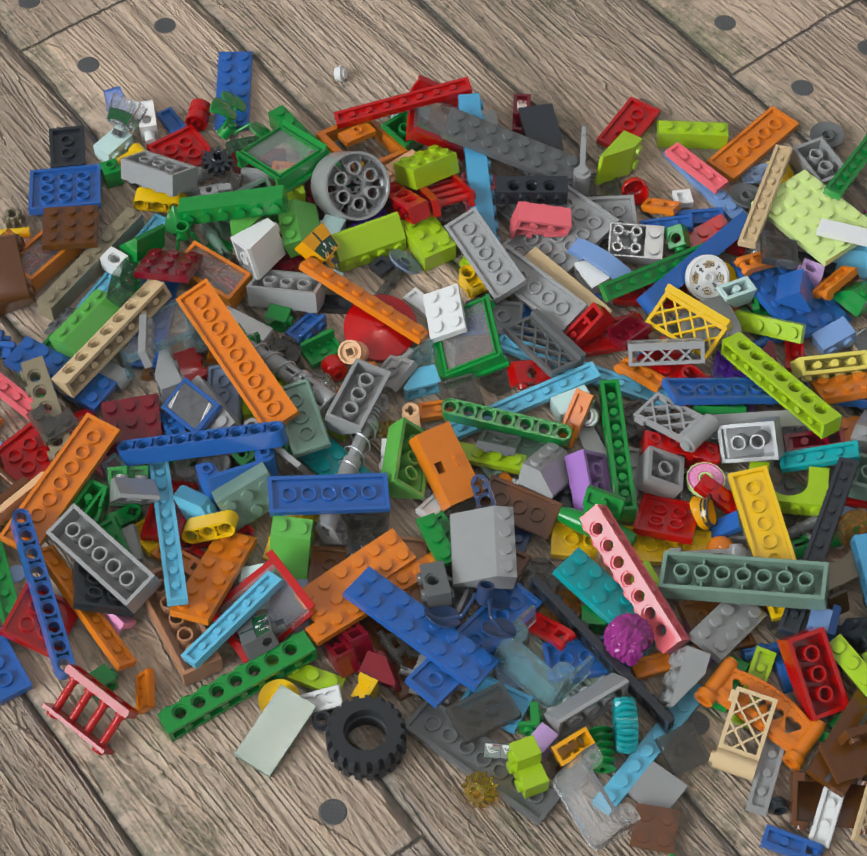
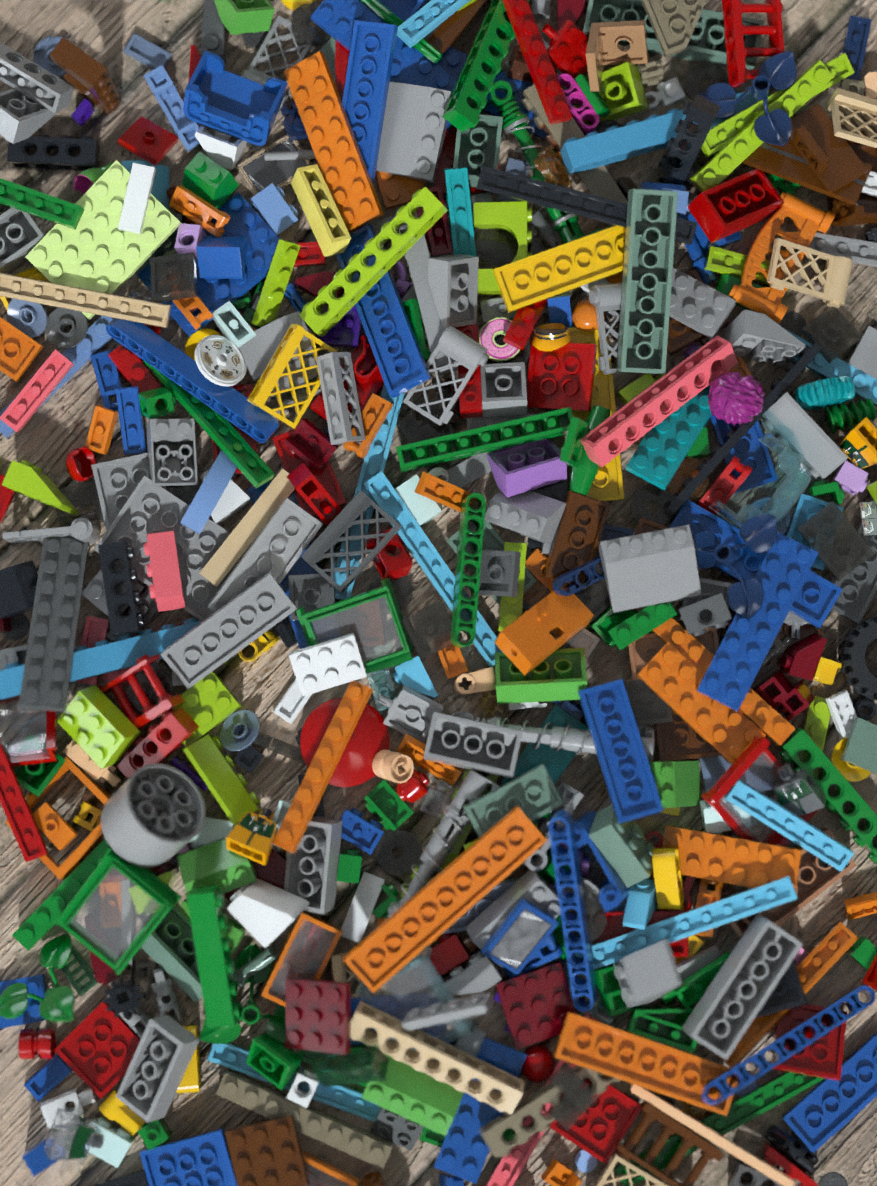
camera: 100 degrees left, 30 degrees up
(683, 196) = (80, 405): white plate -> none

